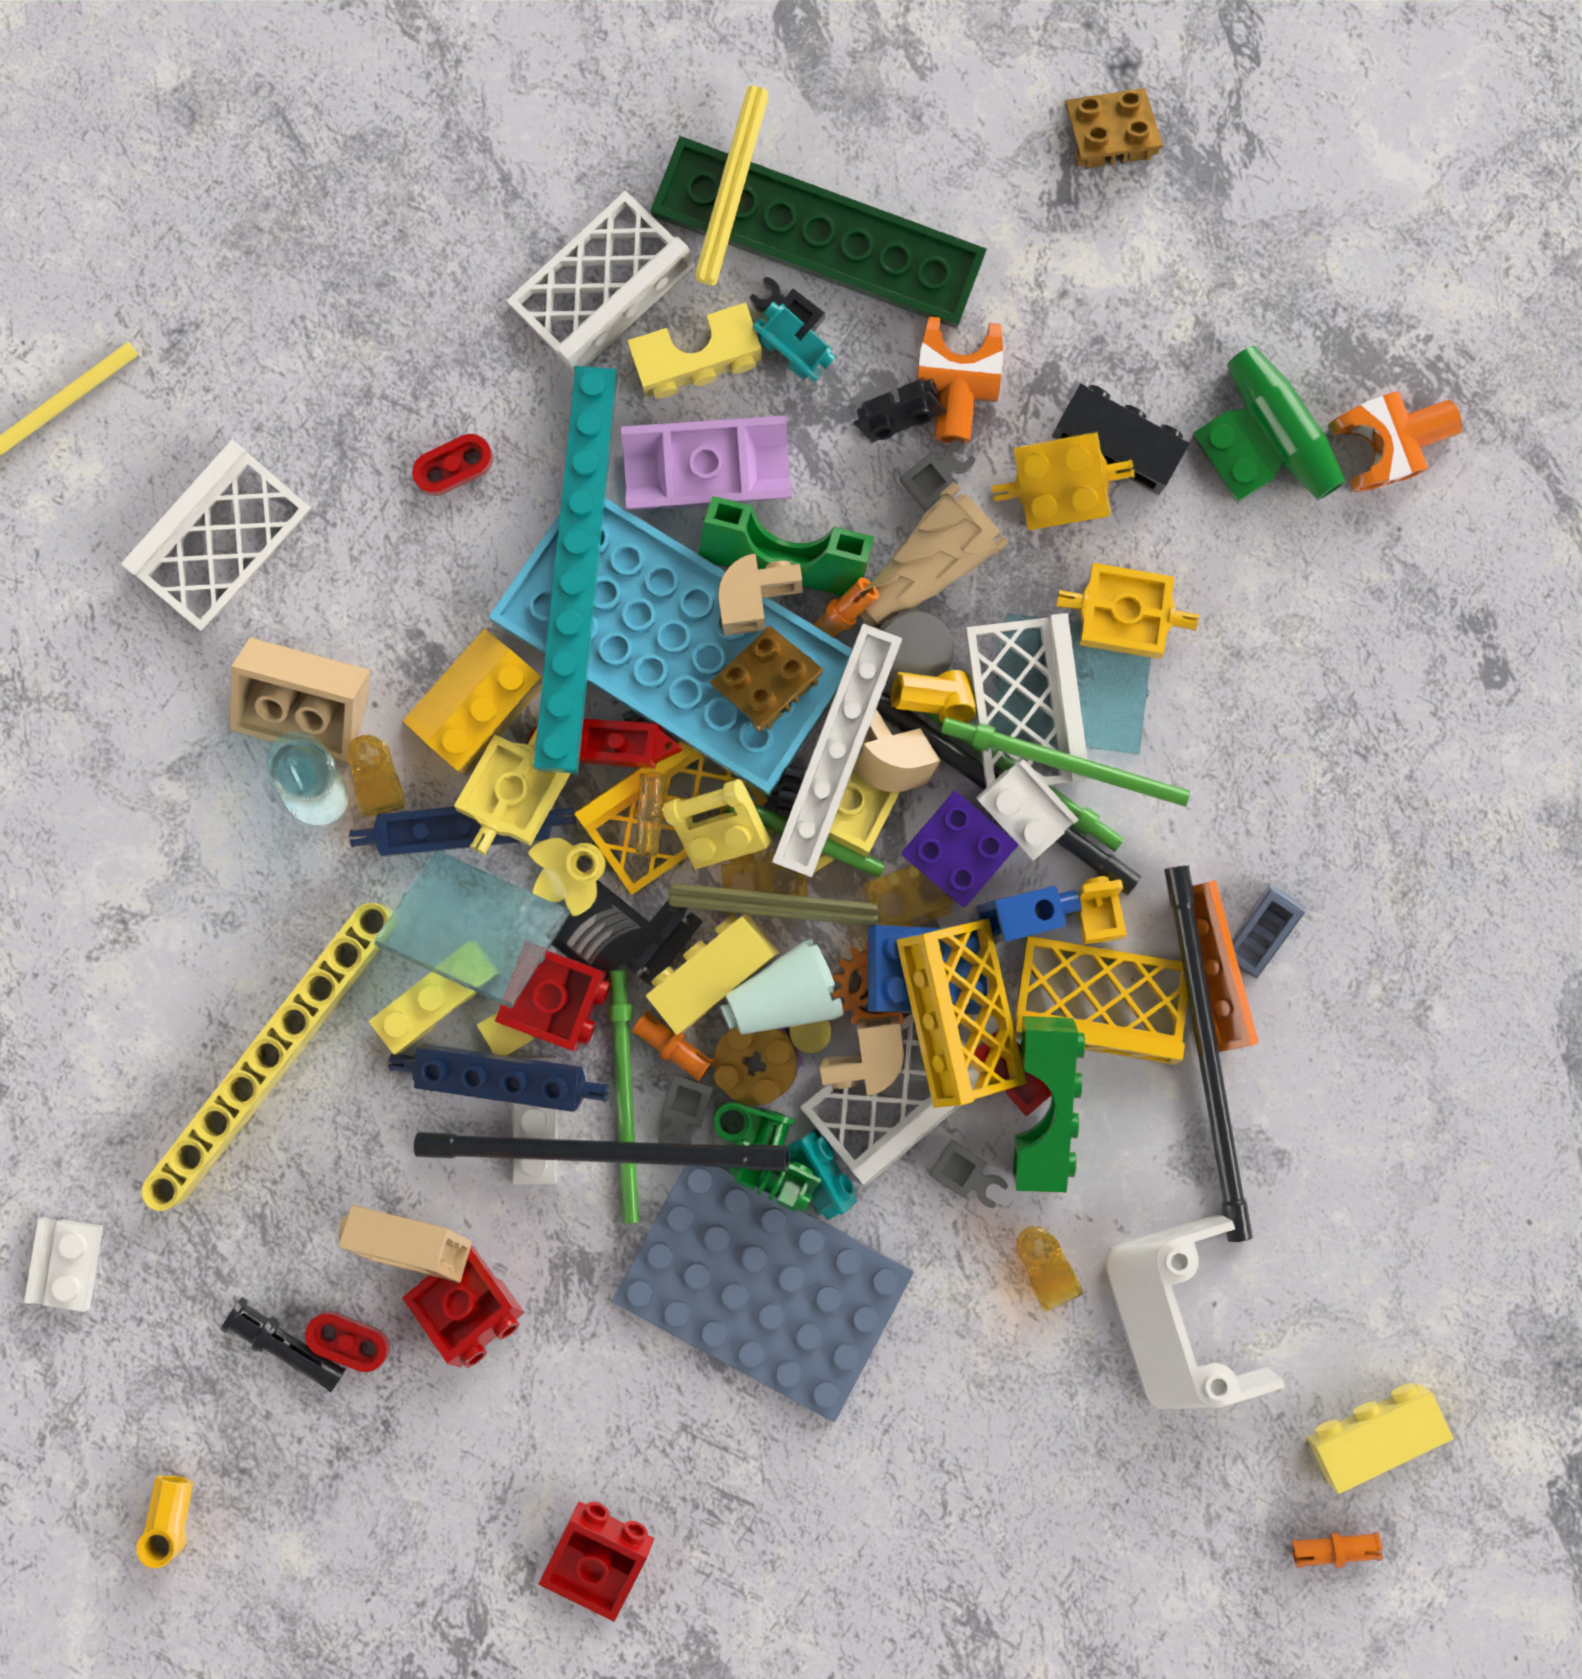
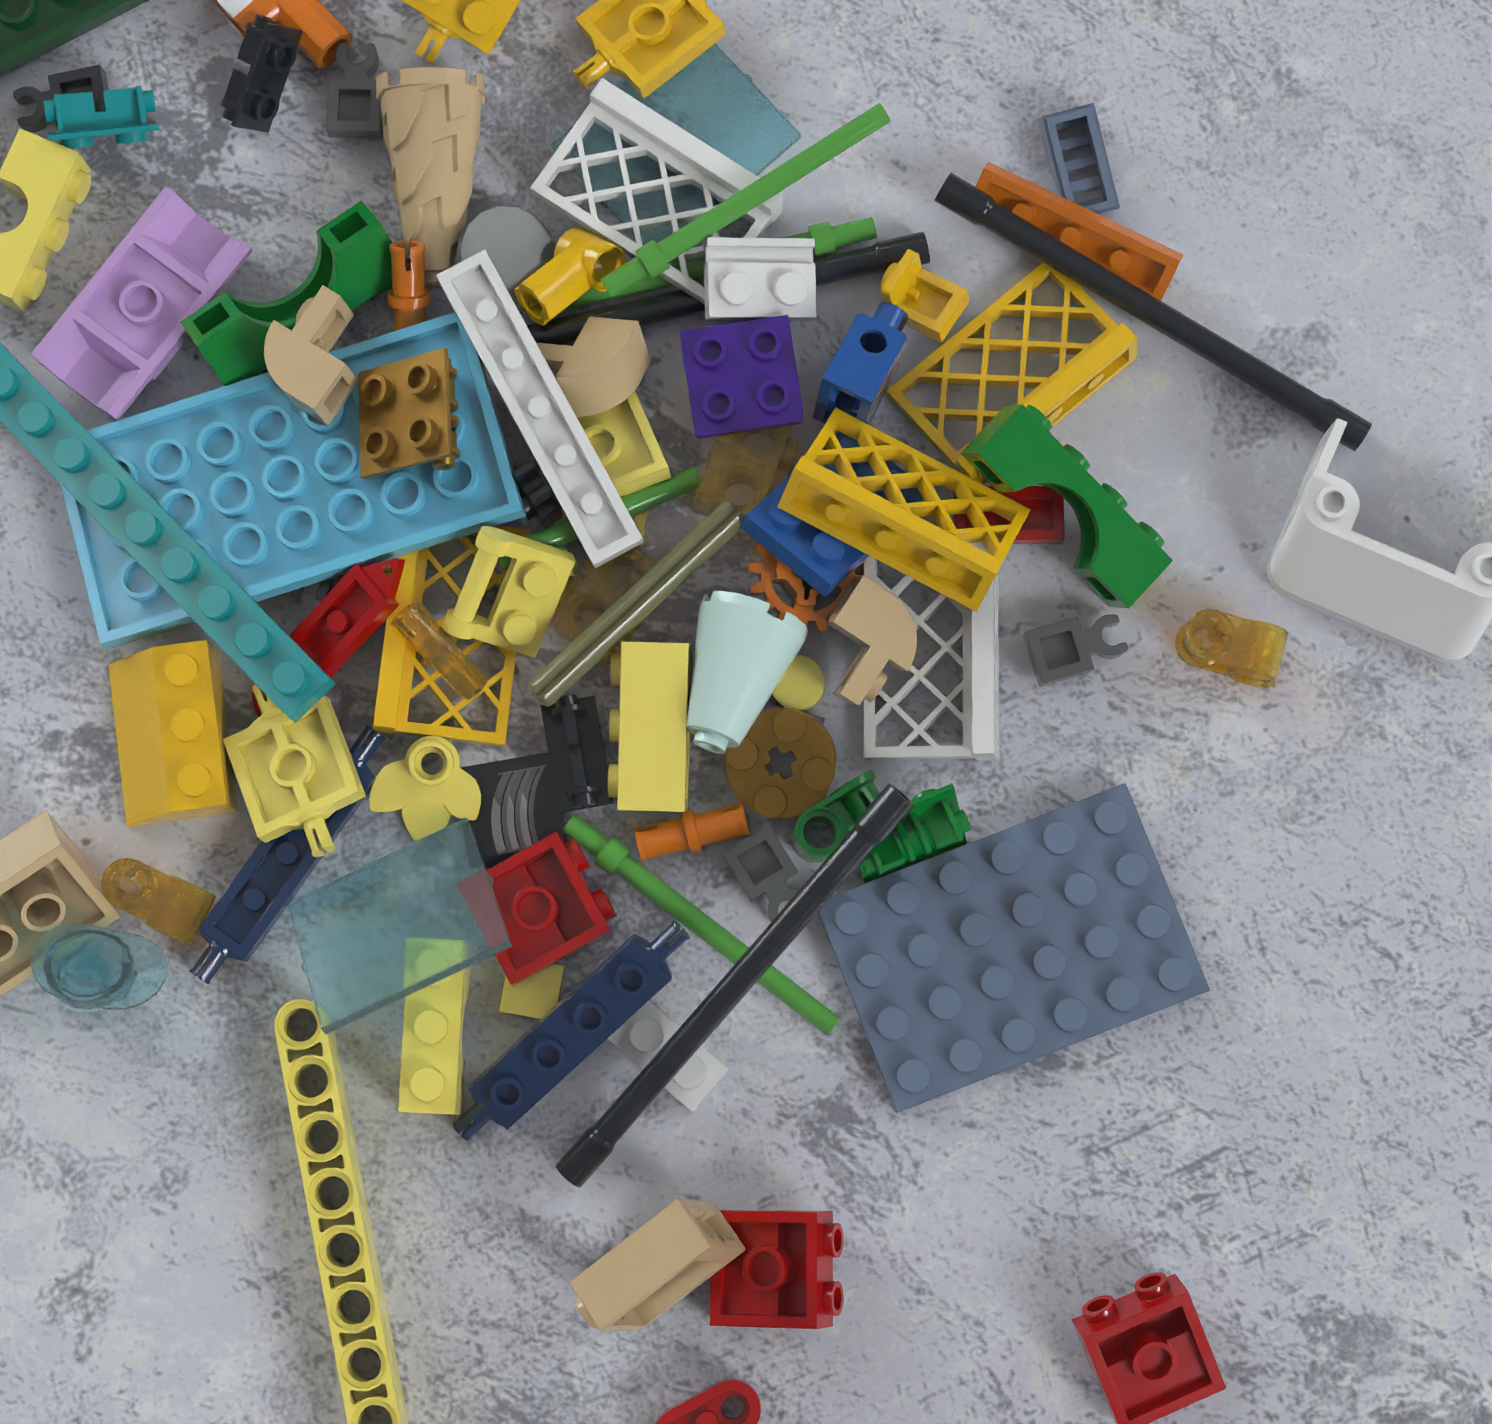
camera: 45 degrees left, 5 degrees down
(835, 1191) = (974, 789): teal hinge -> none

